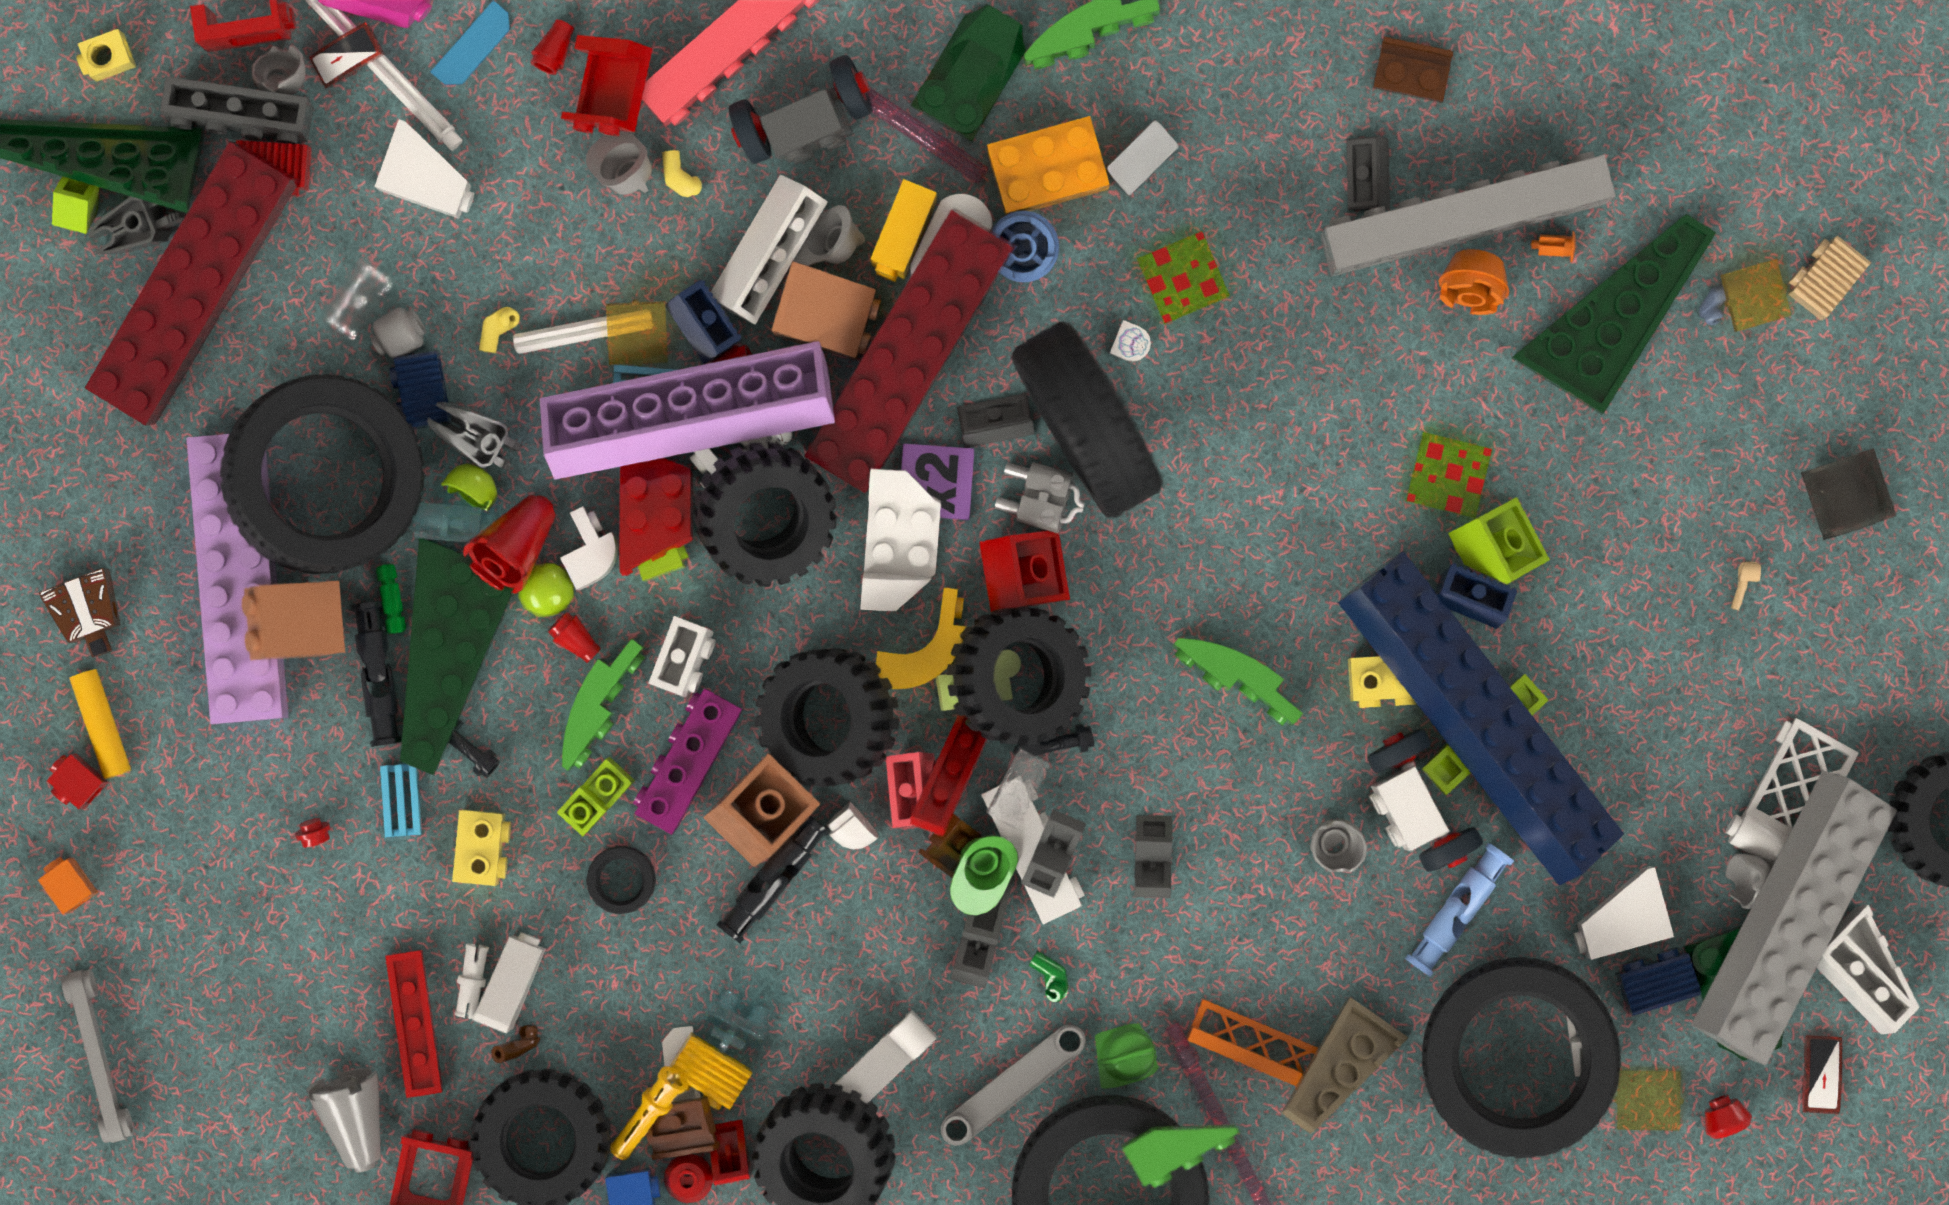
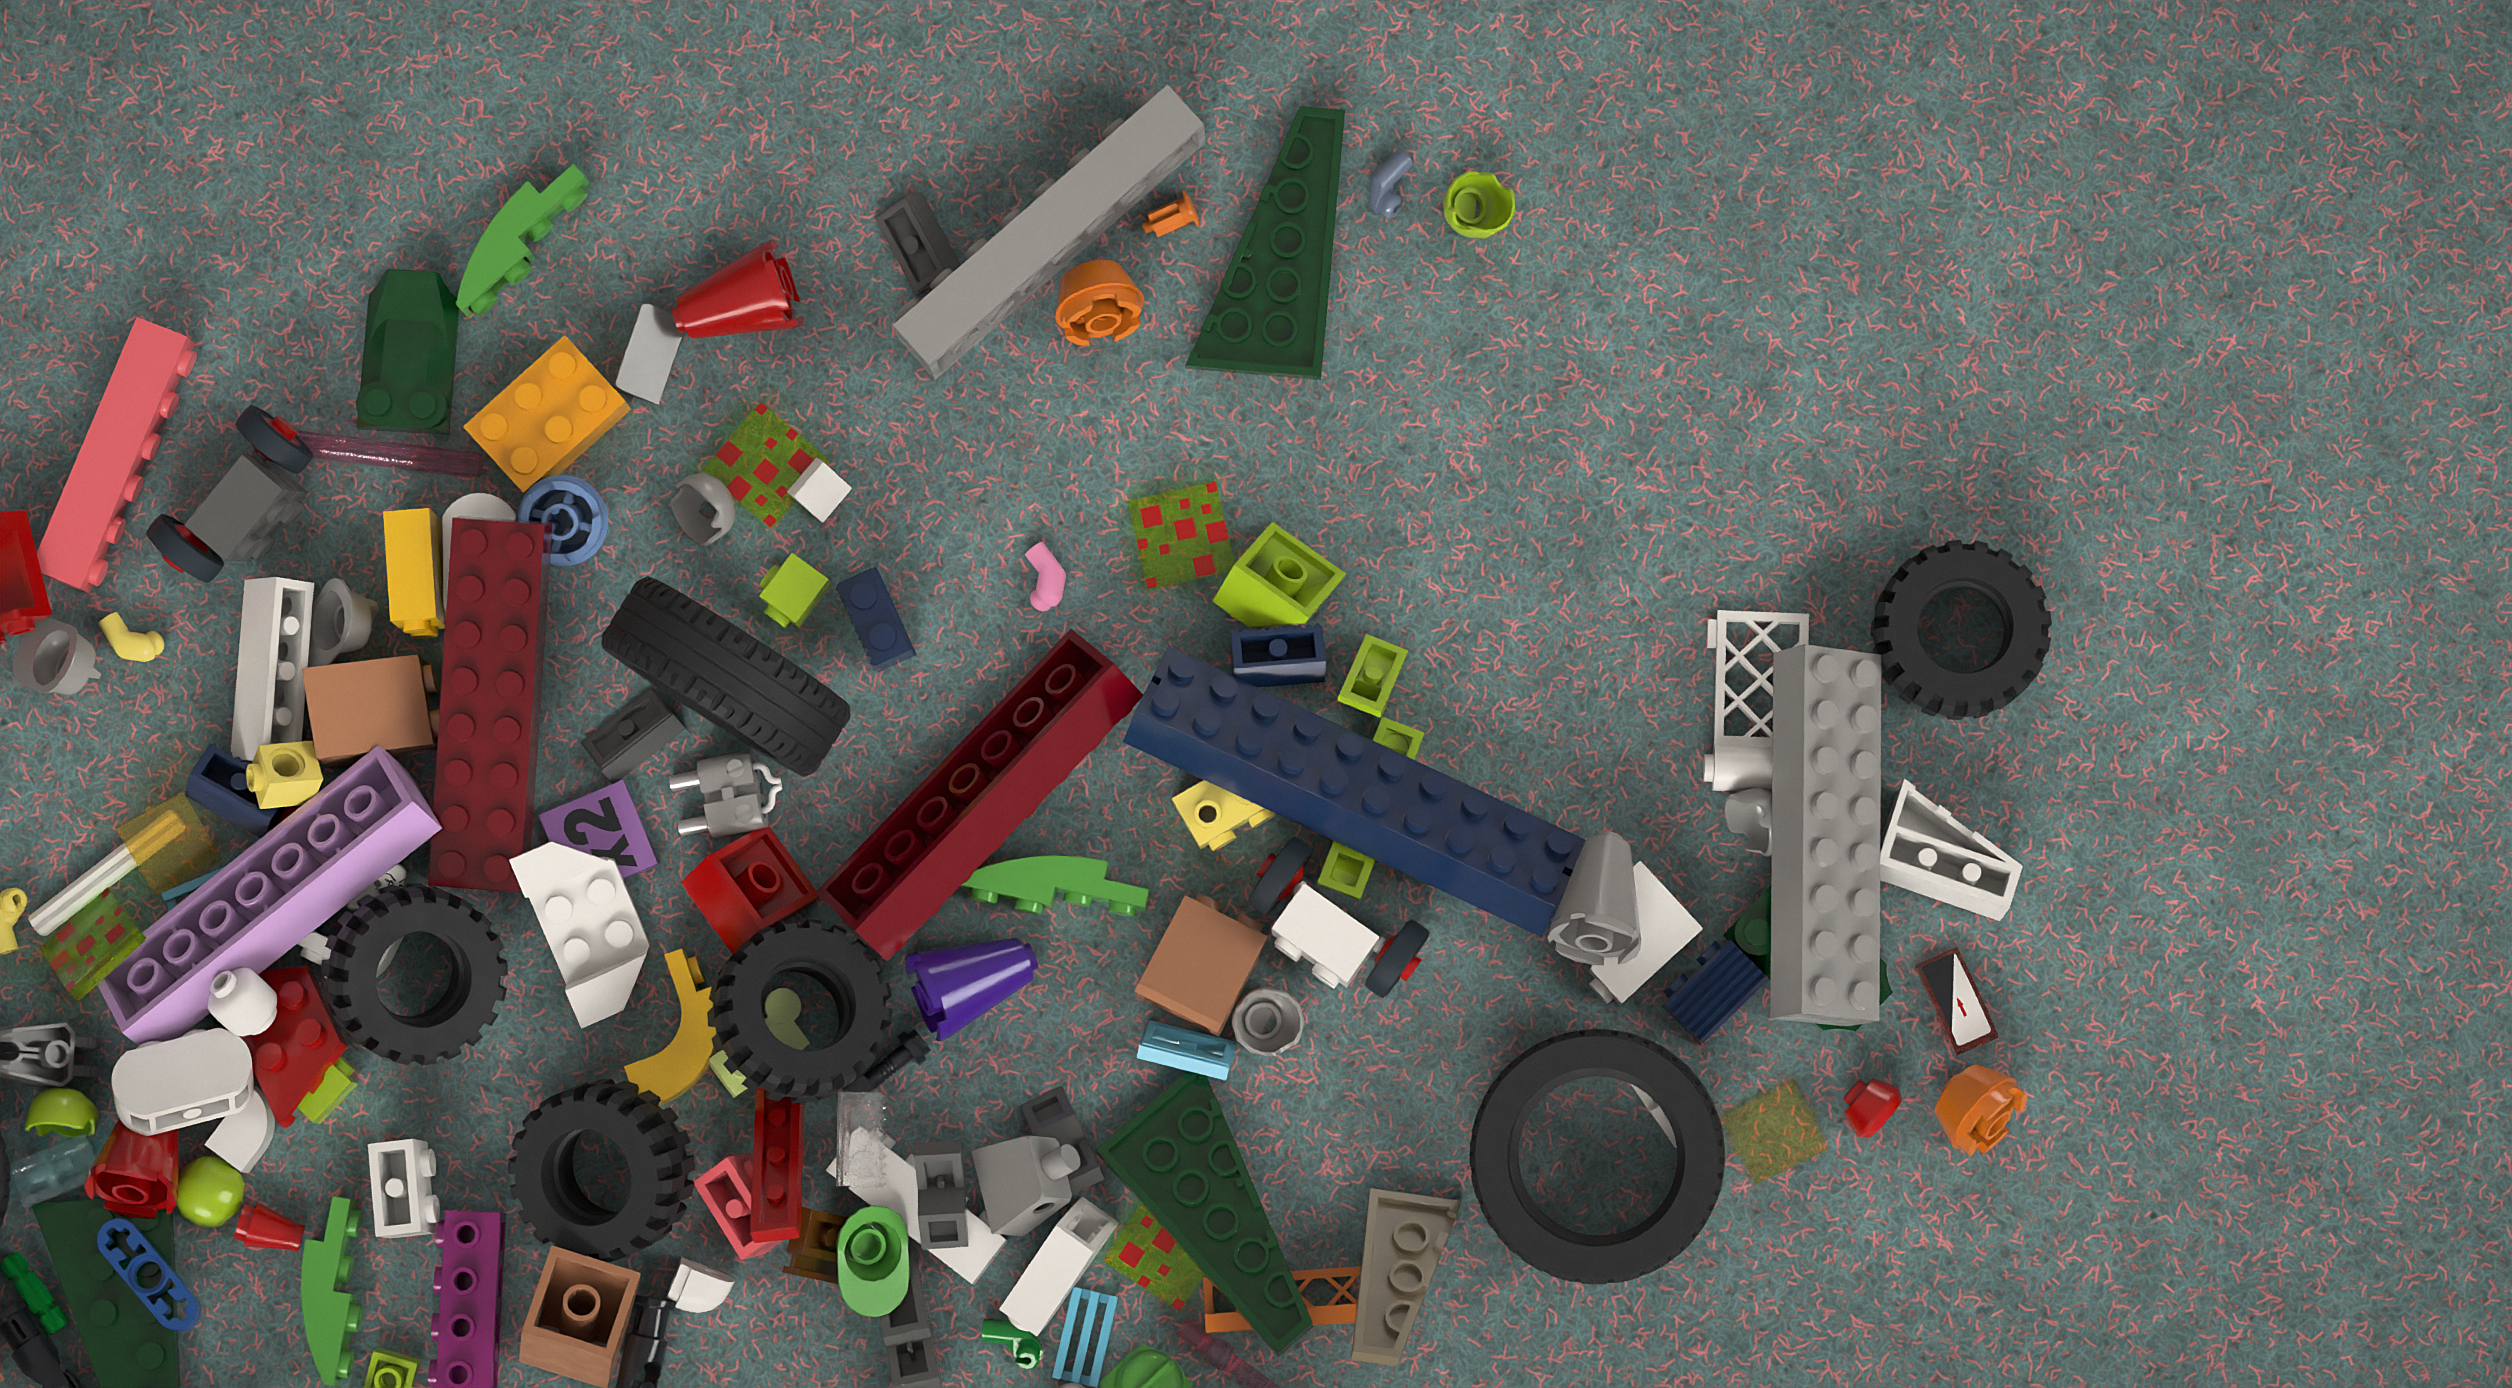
camera: 20 degrees left, 5 degrees down
(480, 601) = (137, 1241): none -> blue beam
(550, 377) = (93, 944): none -> clear neon green tile
(568, 508) = (182, 1081): none -> white brick
(637, 474) = (242, 1002): none -> white head
(754, 331) = (299, 770): none -> light yellow brick
(1081, 1022) = (1076, 1375): none -> medium azure tile
(1108, 942) = (1058, 1266): none -> white slope
(1115, 276) = (686, 504): none -> light grey hair
(1115, 872) = (1024, 1181): none -> light grey torso
(1131, 342) = (743, 569): tile -> none
(1143, 712) = (967, 981): none -> dark purple cone
(1158, 376) = (792, 591): none -> lime brick
(1188, 965) = (1154, 1260): none -> clear neon green tile
(1206, 426) = (875, 619): none -> dark blue brick
(1212, 314) = (819, 490): none -> white tile
(1219, 587) = (979, 794): none -> dark red brick
(1225, 151) = (741, 298): none -> red cone
(1231, 934) = (1197, 1187): none -> dark green wing
(1271, 836) = (1186, 1049): none -> medium azure tile
(1313, 784) = (1202, 964): none -> nougat slope
(1342, 458) = (1050, 579): none -> bright pink arm
(1413, 69) = (910, 101): reddish brown plate -> none
(1442, 931) = (1439, 1063): light blue piece -> none
(1533, 642) = (1373, 675): none -> lime slope
(1612, 885) = (1599, 905): none -> light grey cone
(1746, 572) = (1578, 473): tan hand -> none
(1755, 295) = (1425, 157): clear yellow piece -> none
(1787, 352) = (1495, 203): none -> lime hair
(1800, 1157) = (1977, 1108): none -> orange cone
(1828, 277) = (1497, 96): tan brick -> none
(1848, 494) = (1645, 327): clear smoke brick -> none

